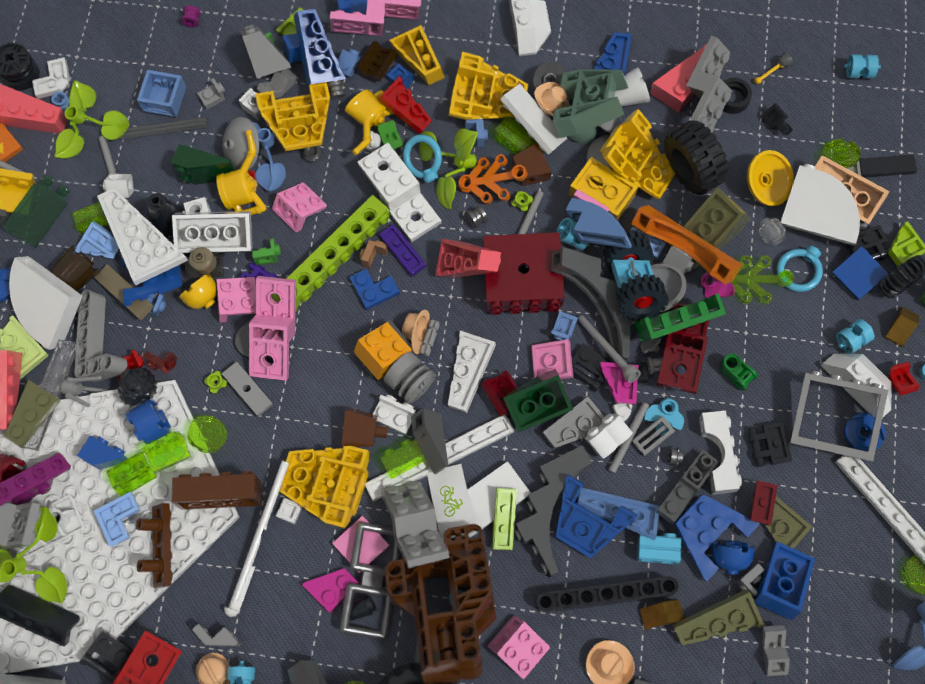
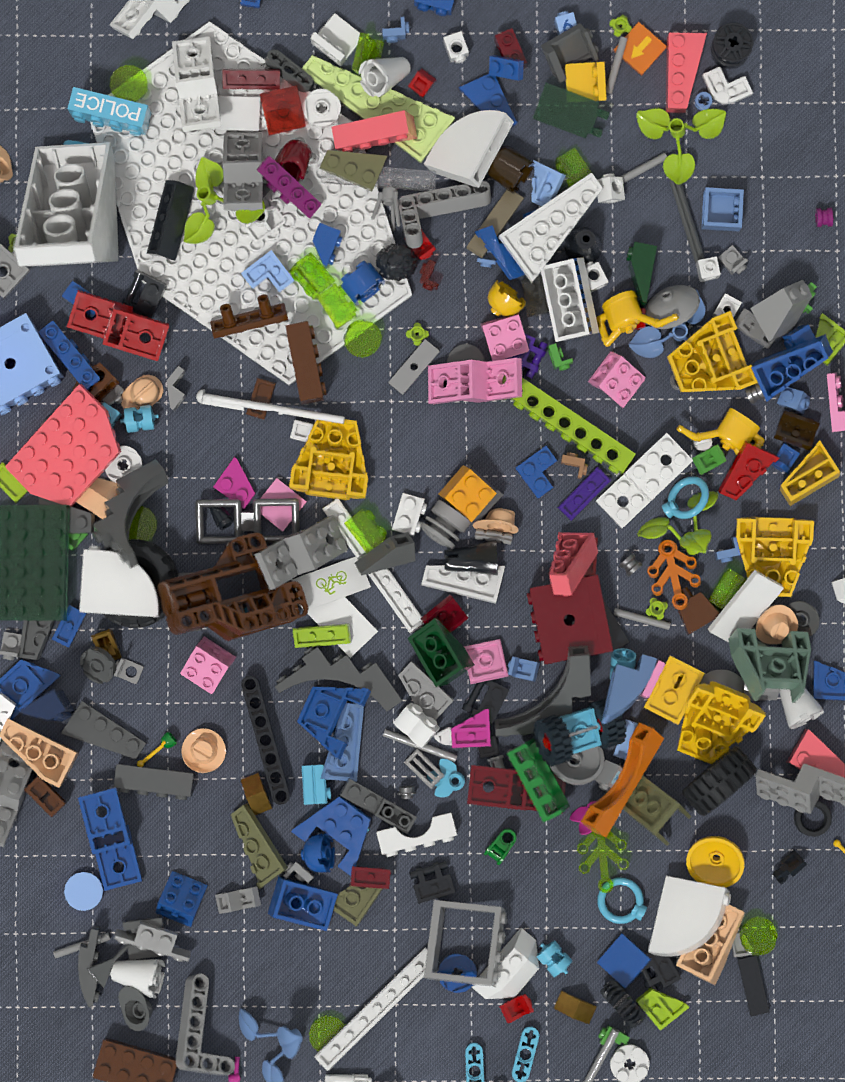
camera: 75 degrees right, 15 degrees up
(202, 260) = (539, 301): dark tan head -> none
(214, 113) = (708, 269): none -> white brick
(241, 544) = (262, 393): none -> reddish brown tile
(361, 428) = (388, 486): reddish brown torso -> none
(448, 355) = (474, 558): none -> black piece
(629, 372) = (478, 738): light grey piece -> none
(772, 231) = (657, 868): clear head -> none

